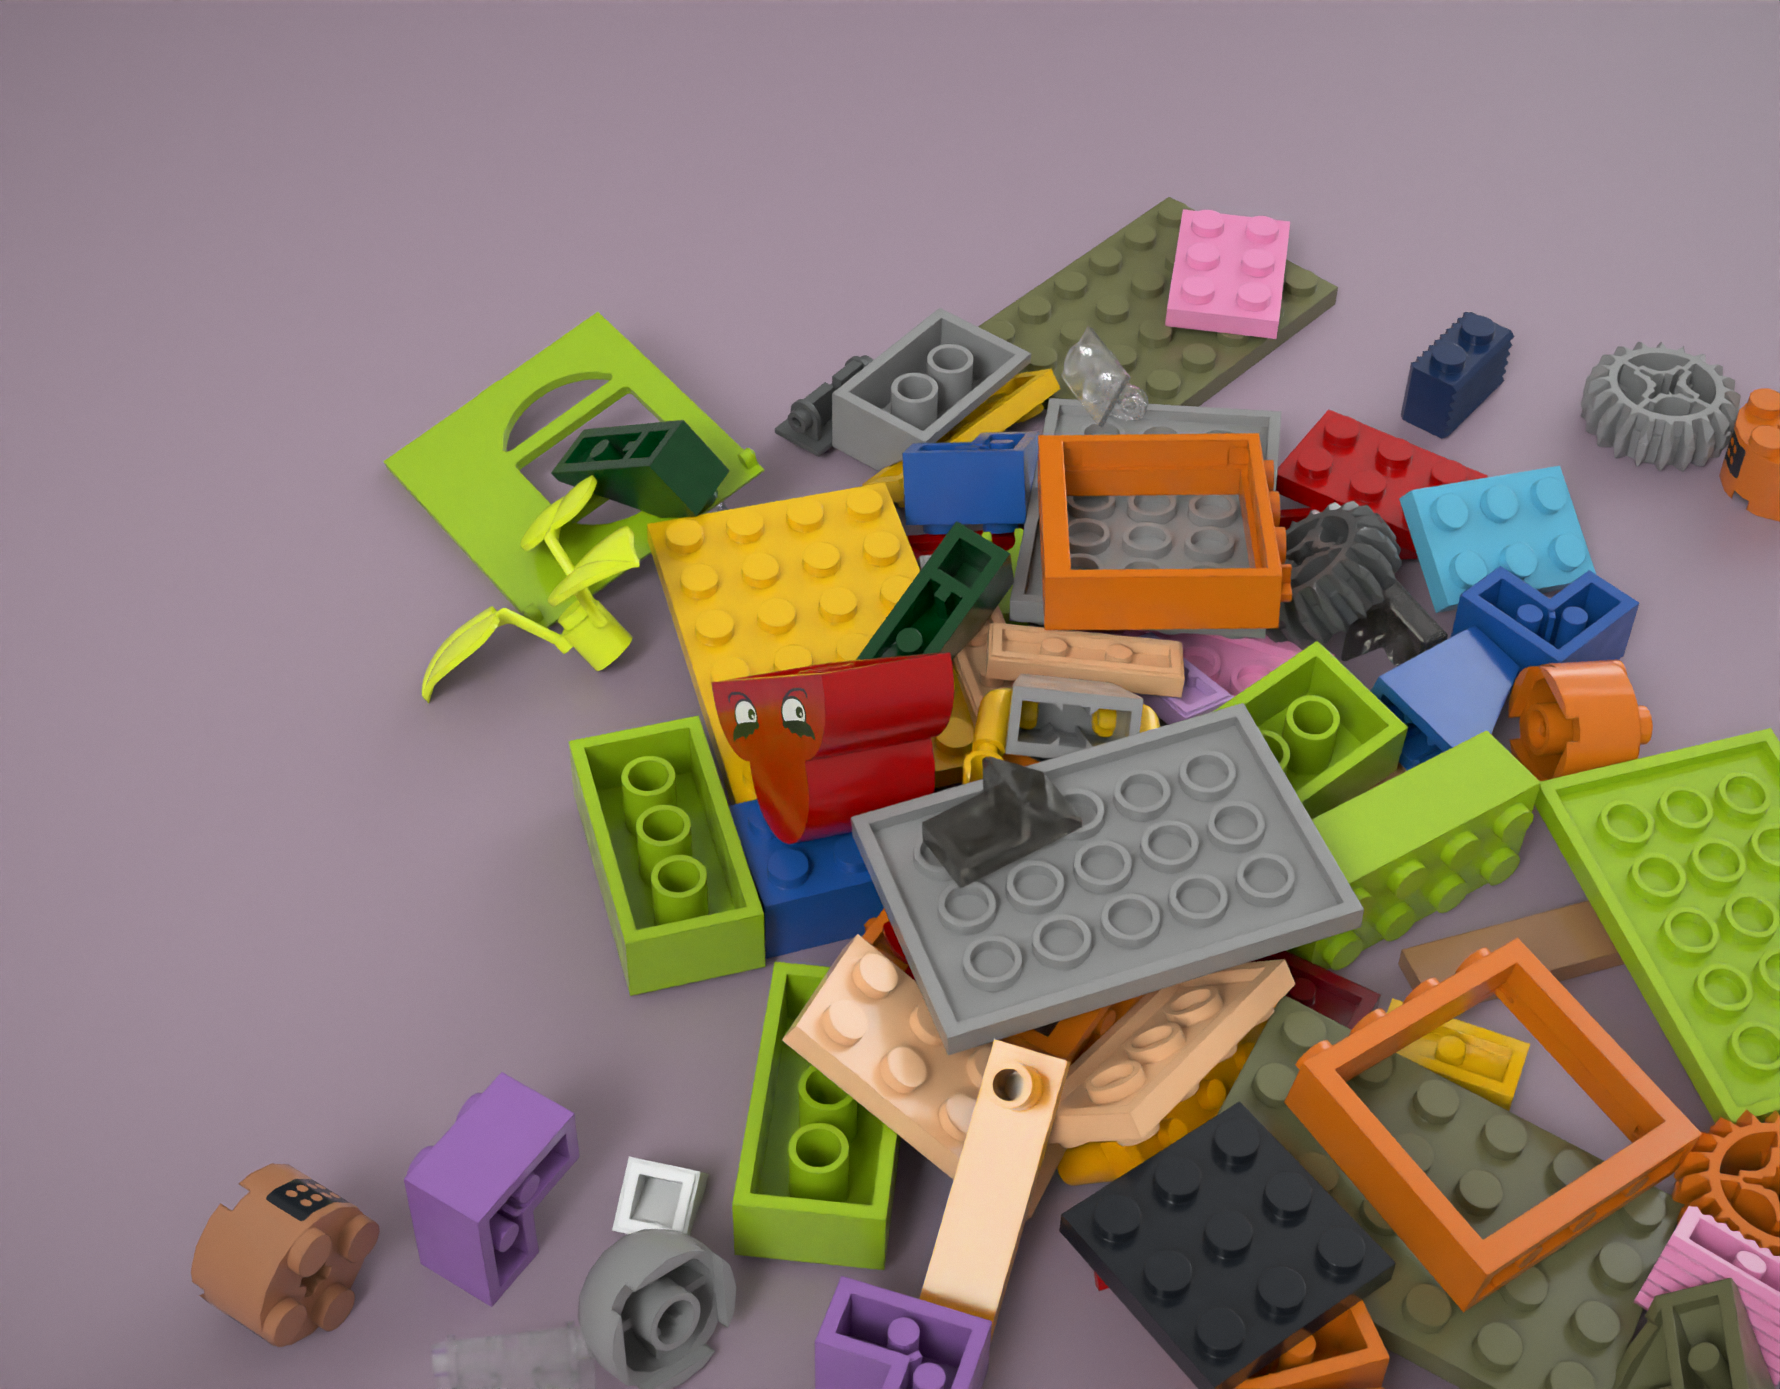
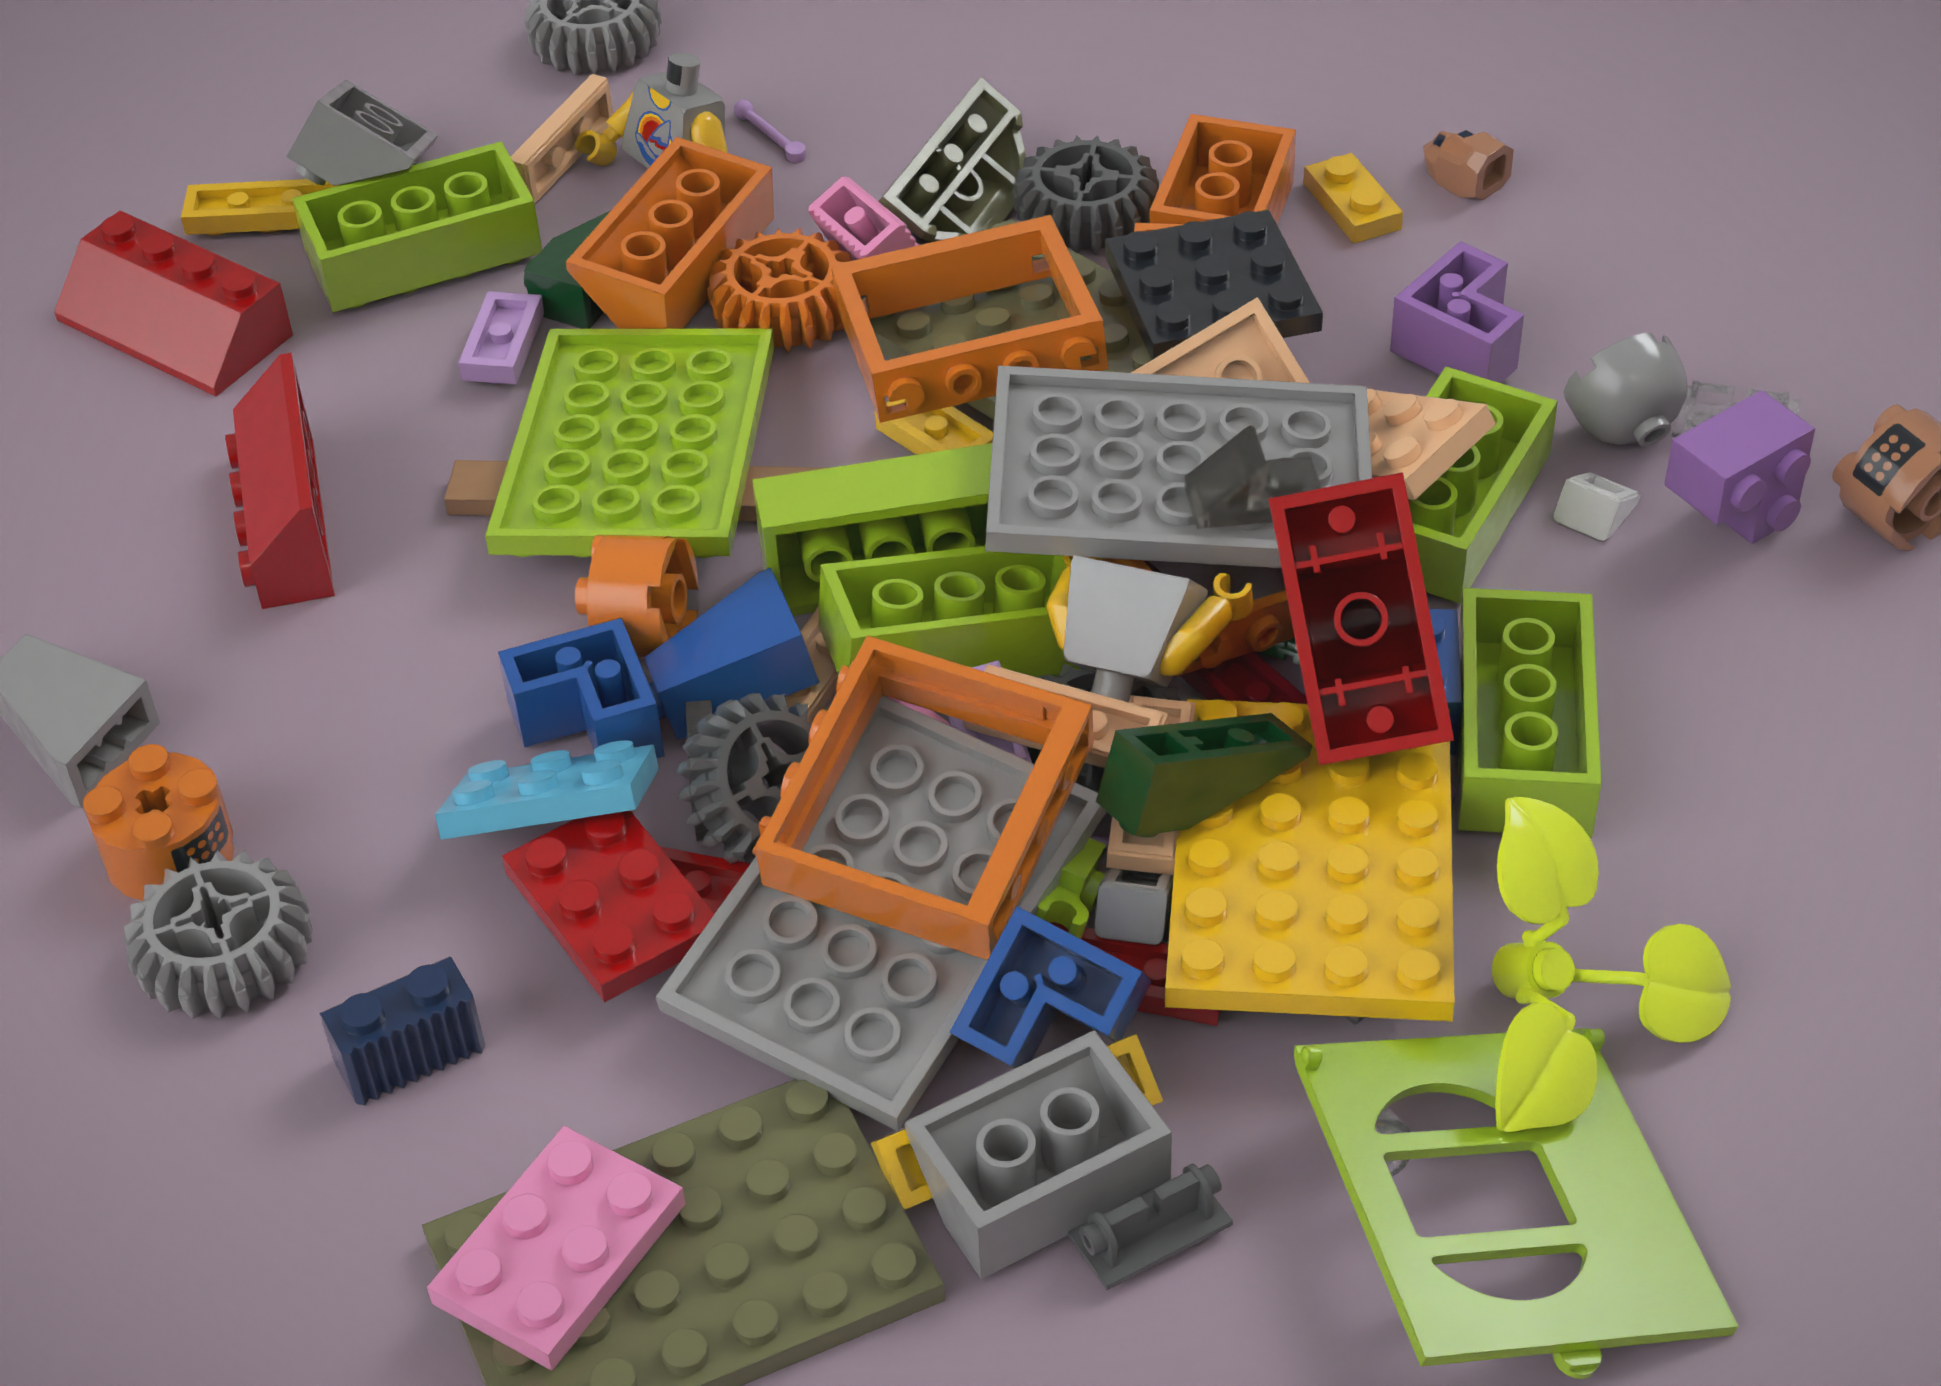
camera: 155 degrees left, 0 degrees up
(646, 467) = (1443, 1074): dark green slope -> none
(995, 1181) = (1334, 361): piece -> none
(1101, 381) = (840, 1057): clear hinge -> none

